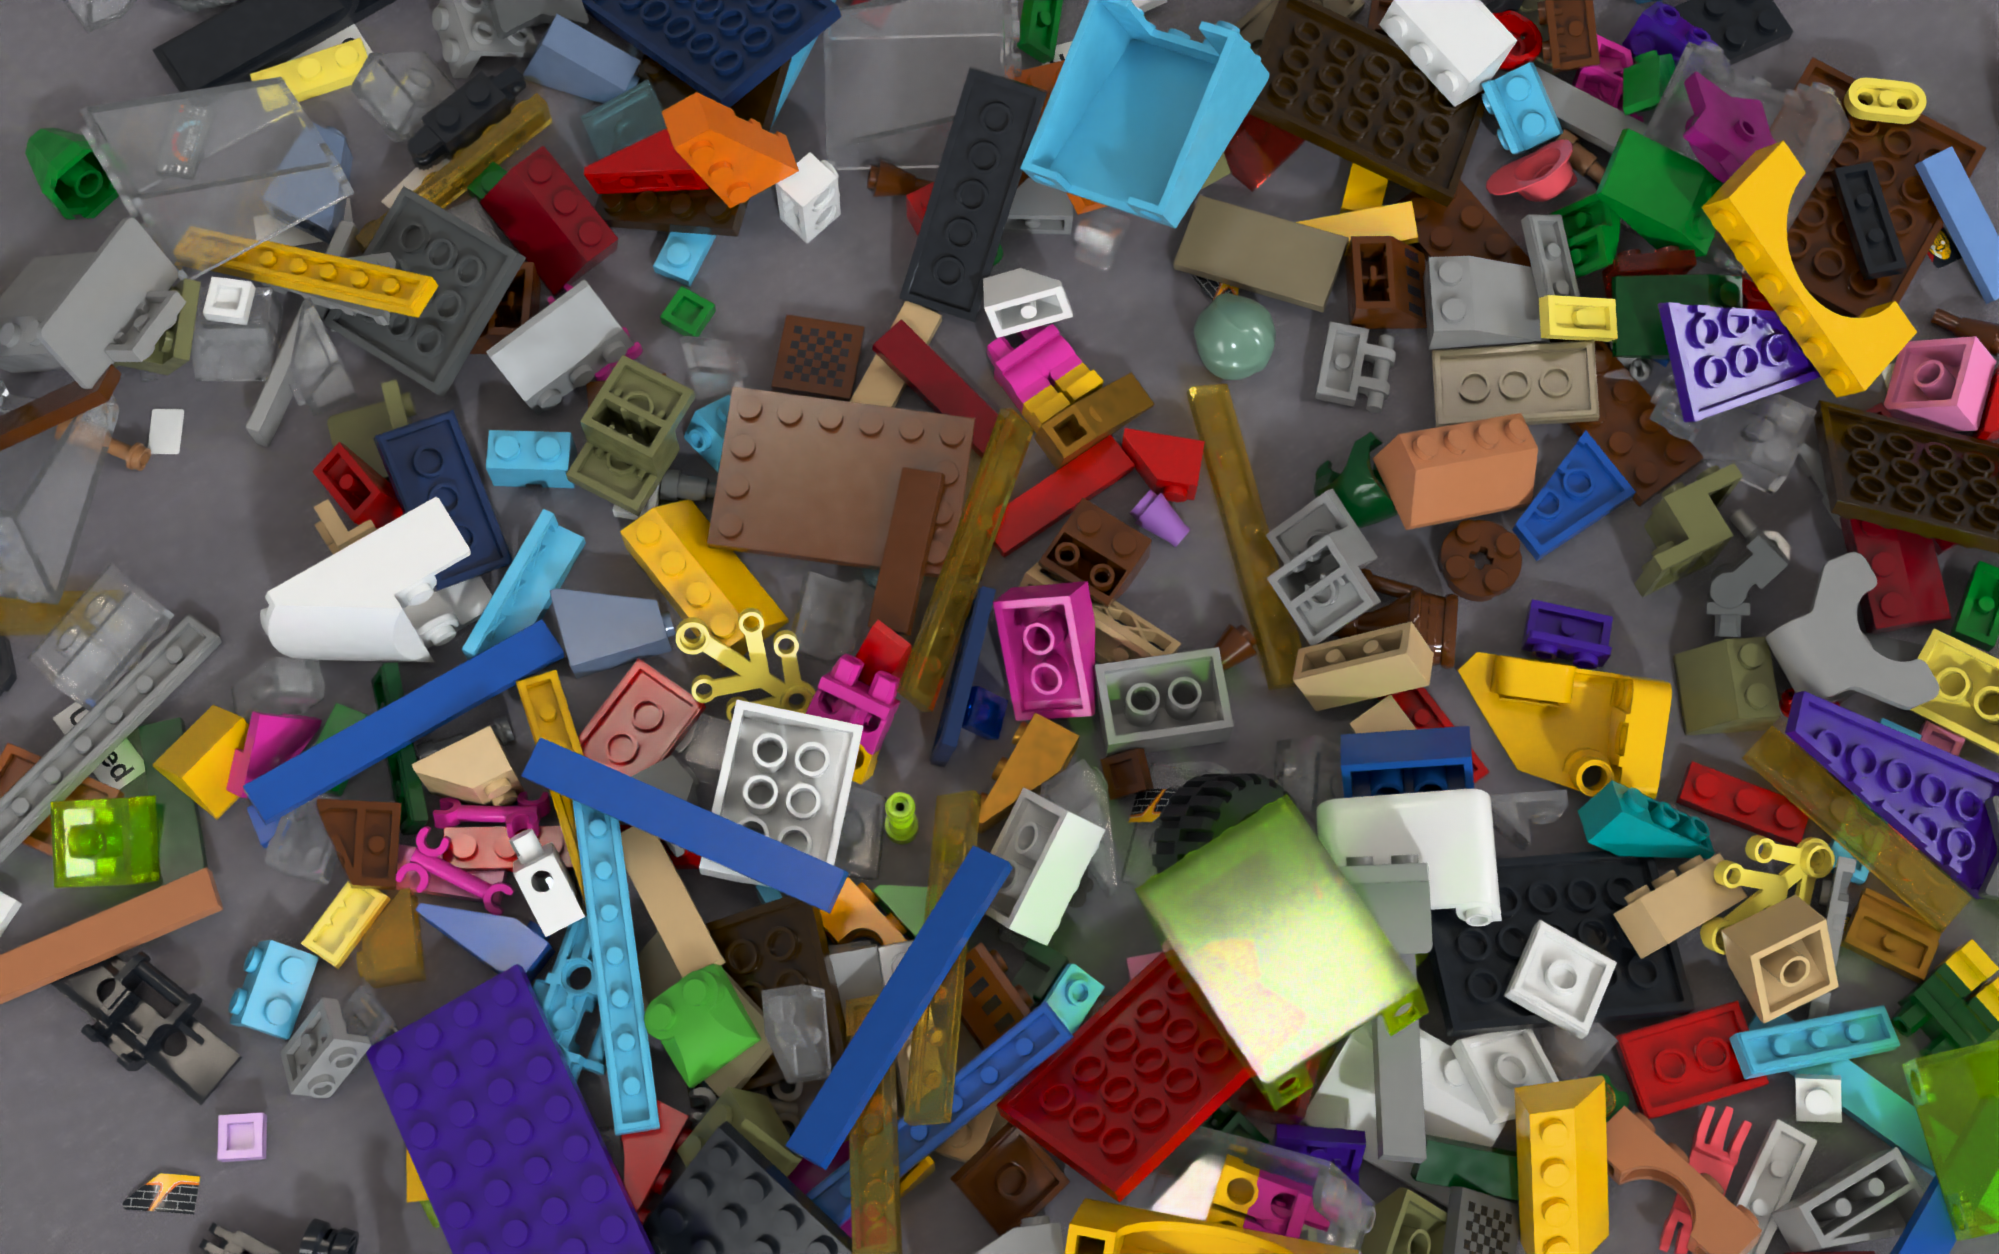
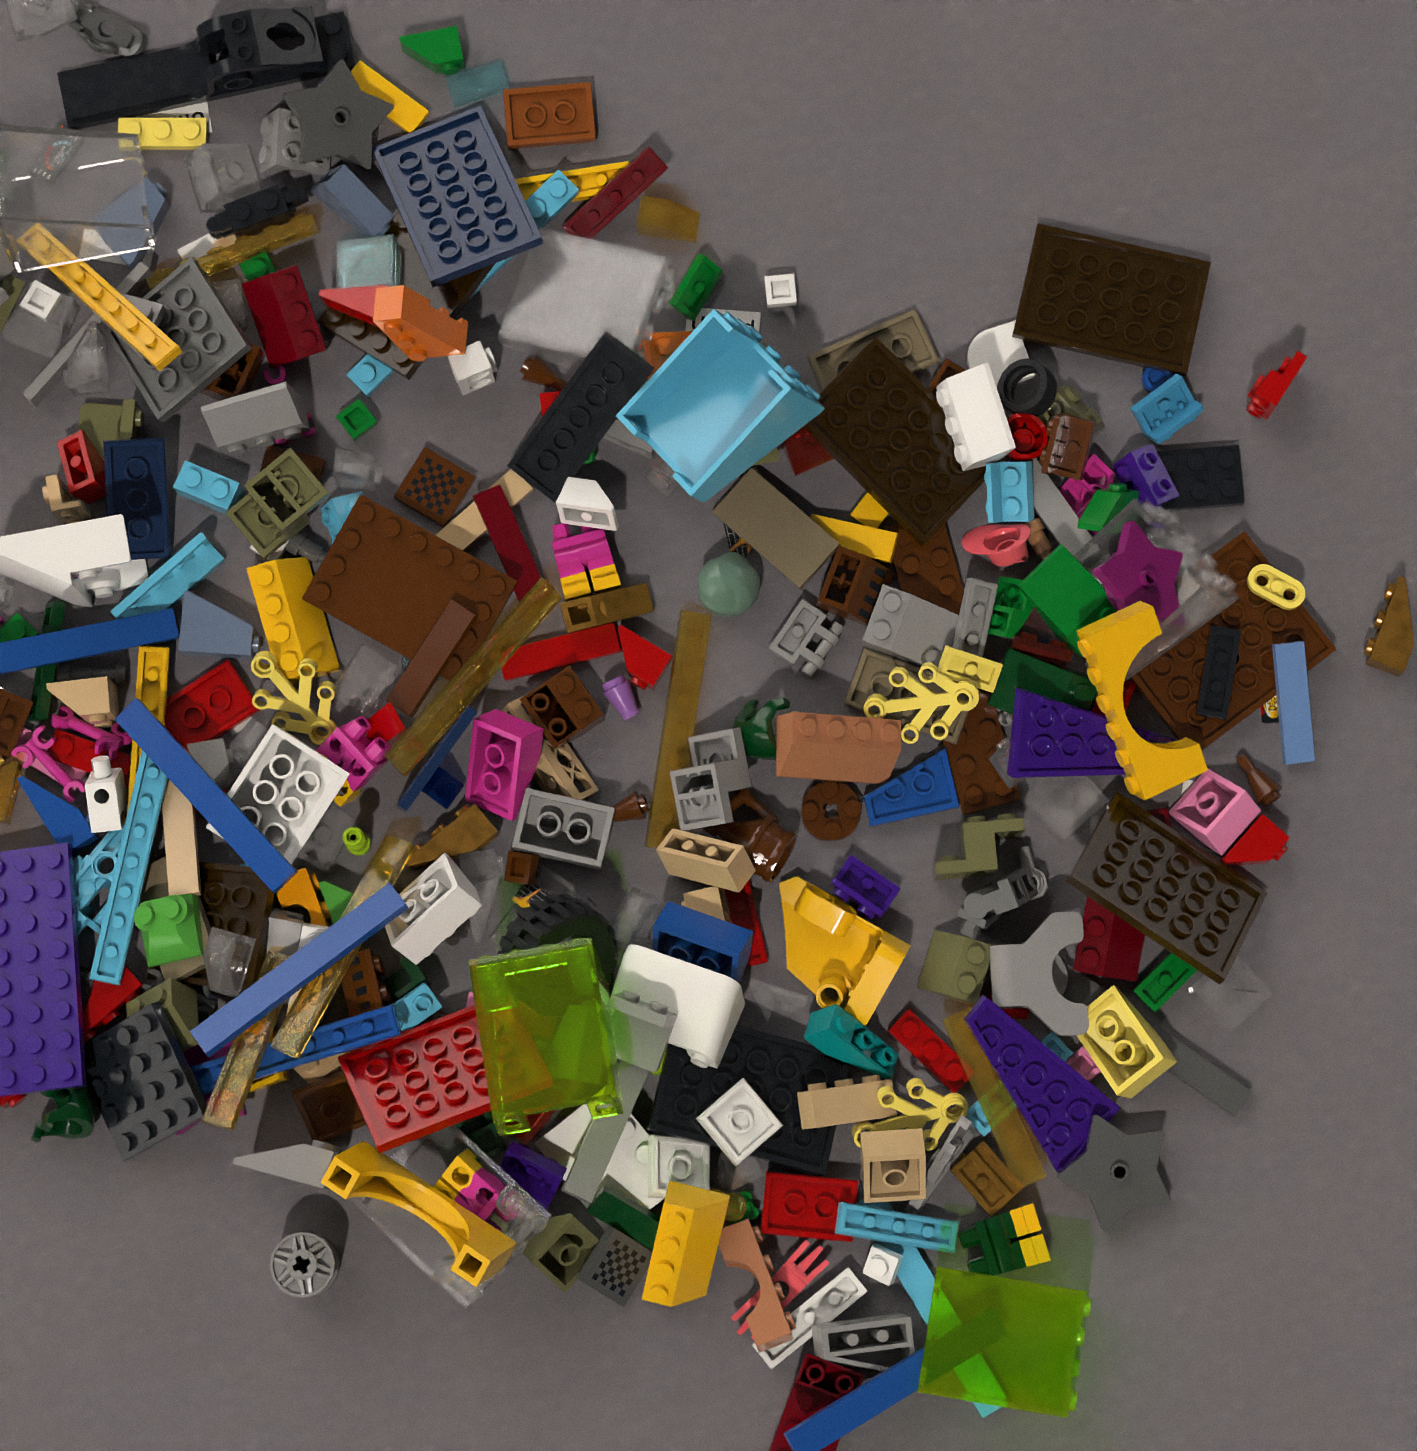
camera: 25 degrees right, 10 degrees up
(1545, 374) = (925, 700): none -> light yellow plant

